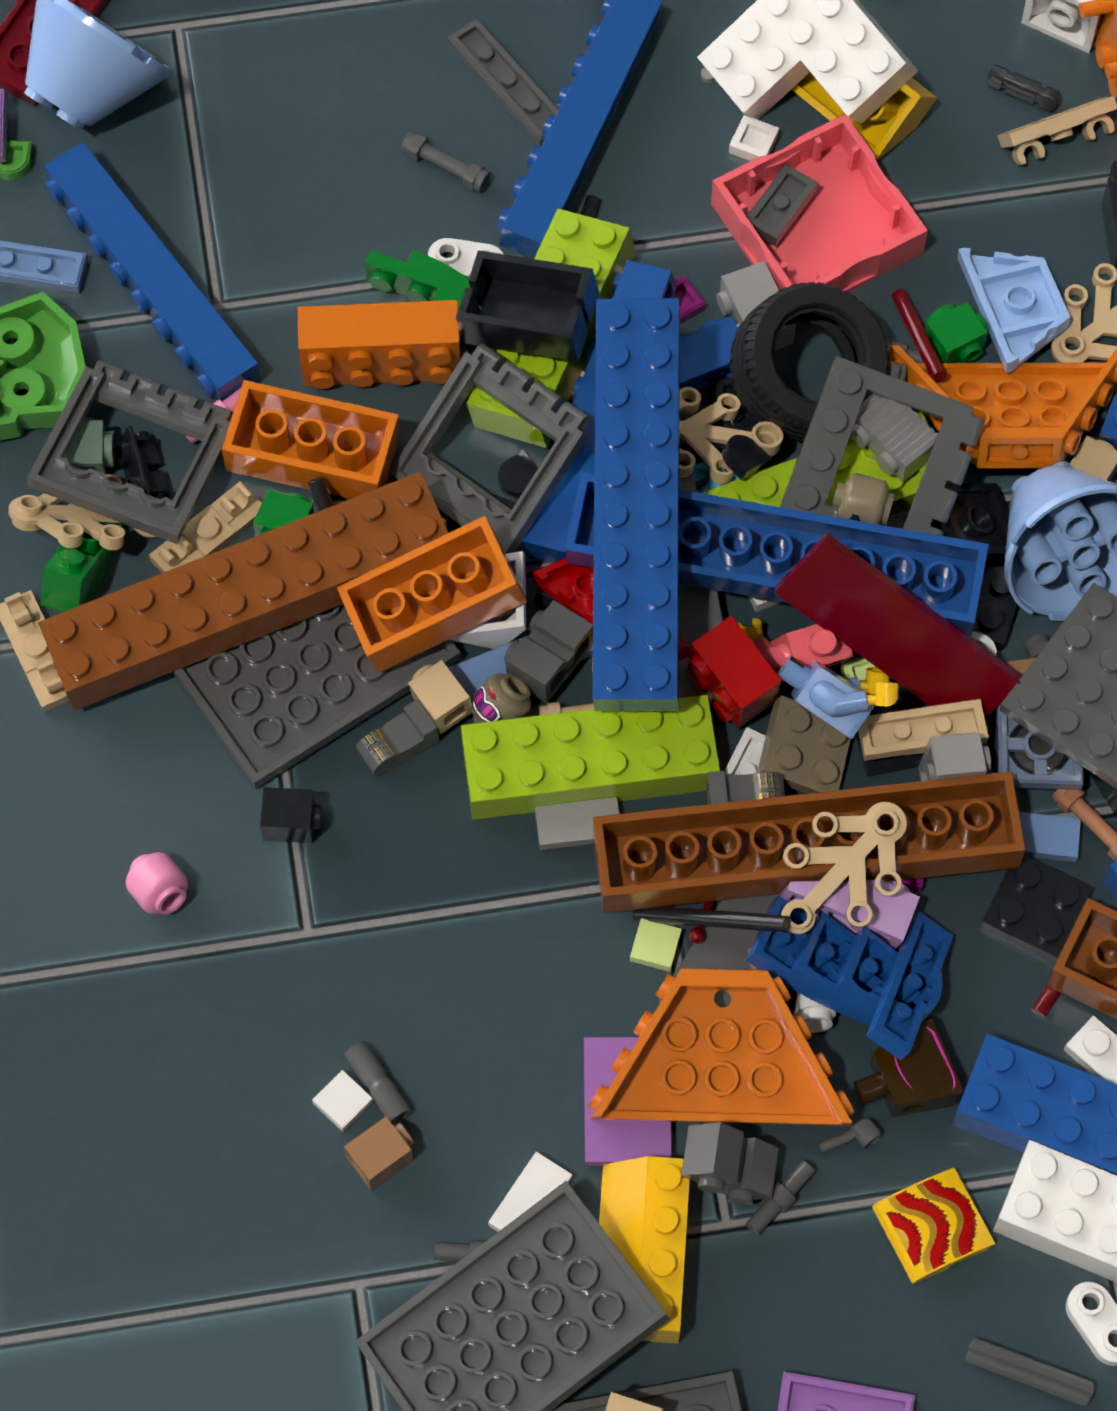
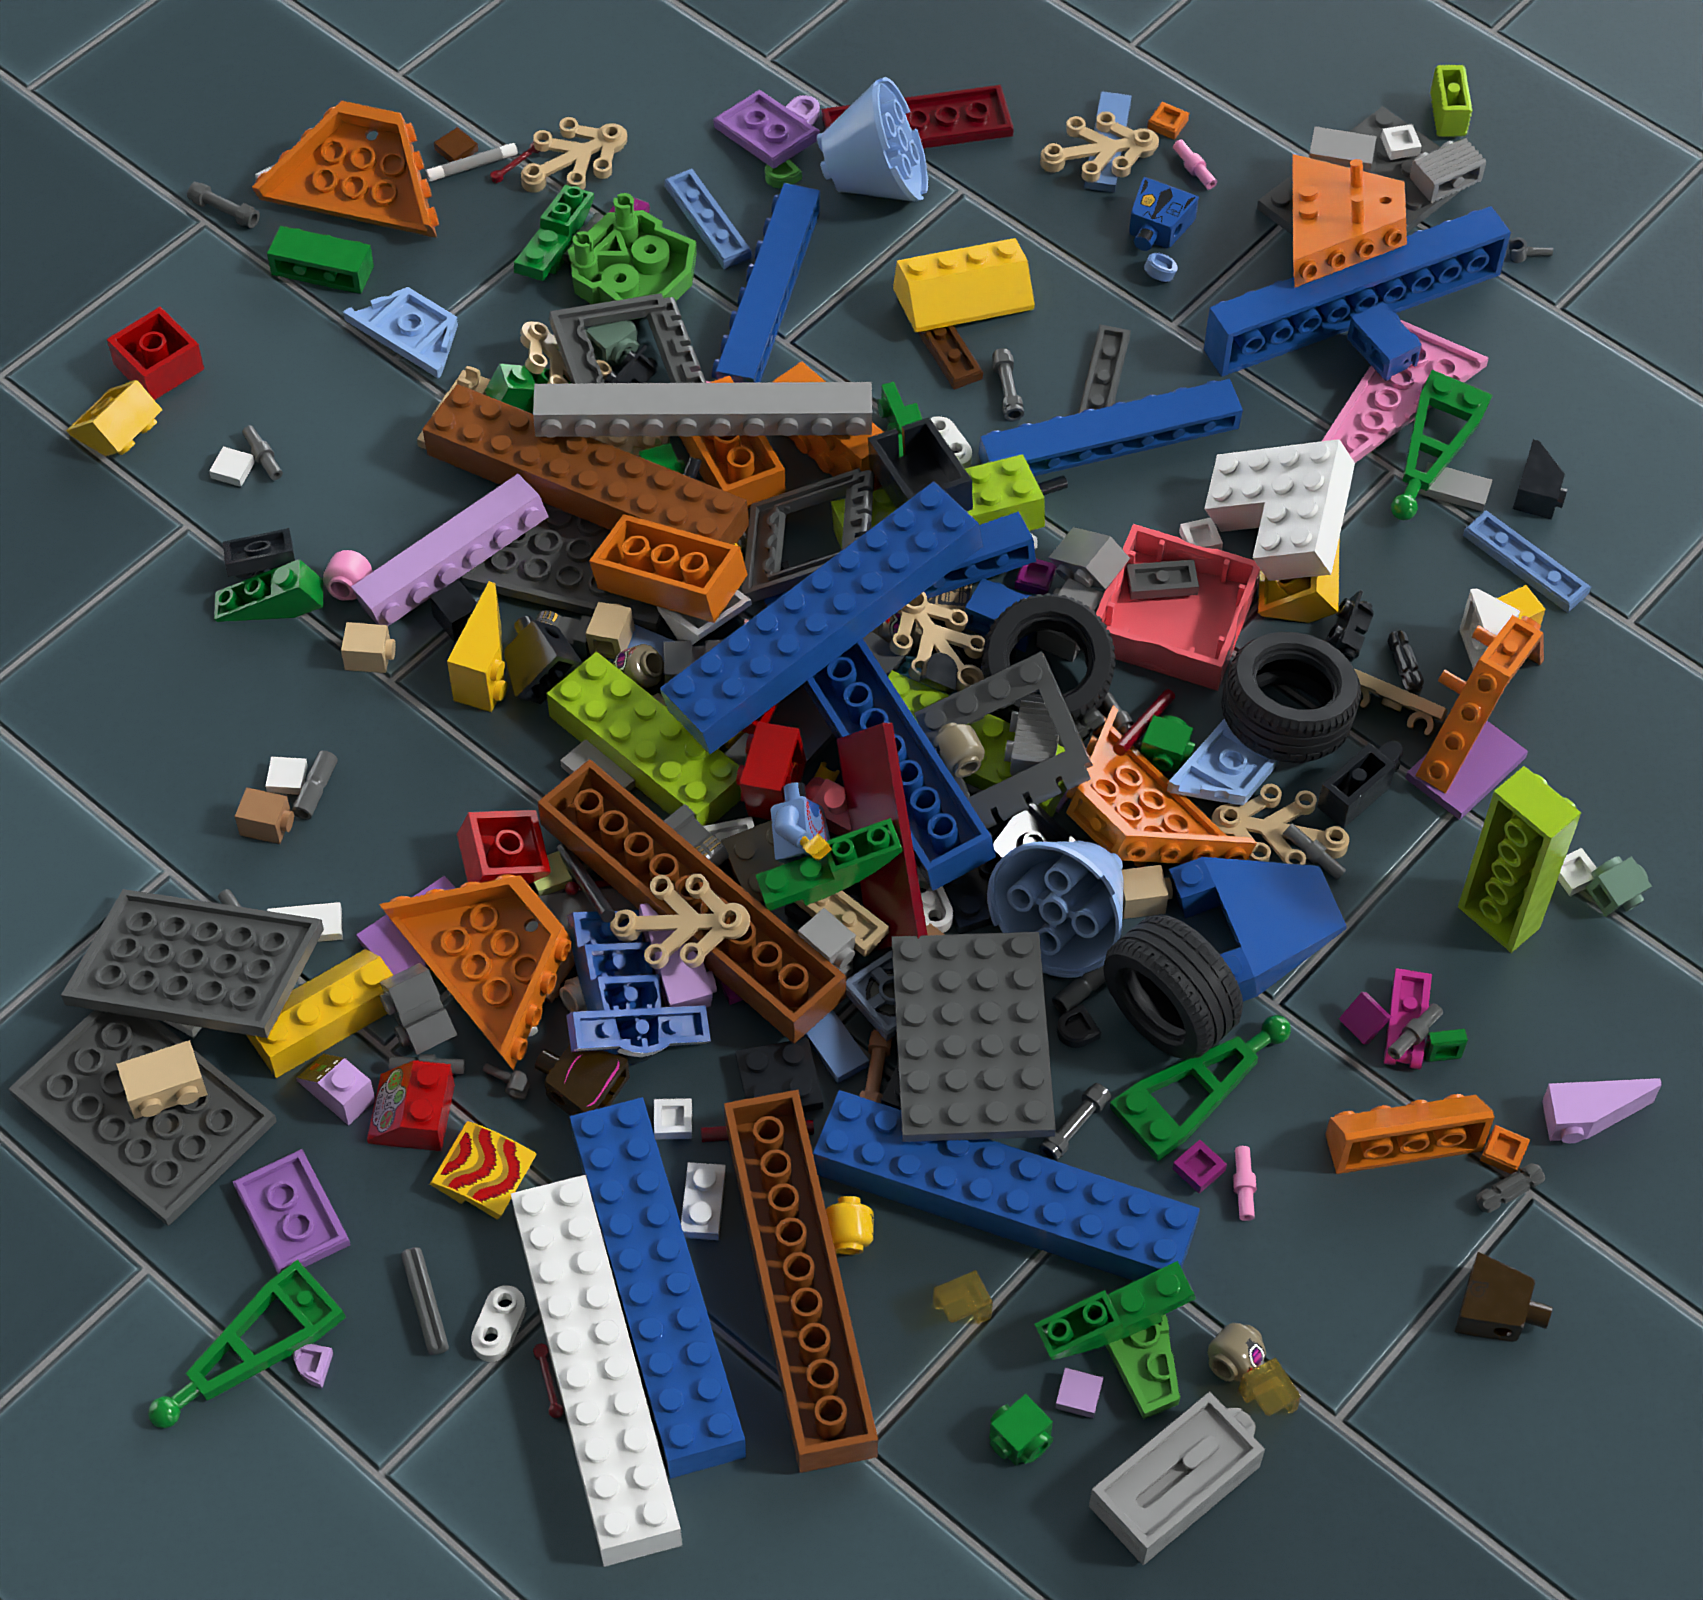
camera: 50 degrees right, 10 degrees down
(60, 945) = (258, 553): none -> black plate
(116, 972) = (271, 595): none -> green slope
(224, 771) = (450, 551): none -> lavender brick
(260, 924) = (367, 647): none -> tan brick
(288, 433) = (703, 409): none -> light grey brick
(308, 110) = (964, 285): none -> yellow slope
(334, 173) = (952, 355): none -> reddish brown tile
(373, 823) = (477, 658): none -> yellow slope
(419, 780) = (538, 659): none -> torso
(607, 967) = (503, 845): none -> red slope
(718, 244) = (1088, 558): none -> light grey brick
(739, 1293) = (338, 1086): none -> lavender slope
(817, 1242) = (412, 1106): none -> red slope
(888, 726) = (849, 861): none -> green slope
(958, 114) = (1351, 616): none -> black hinge
(1006, 1022) = (672, 1119): none -> white tile
(1011, 160) = (1283, 731): none -> black tyre

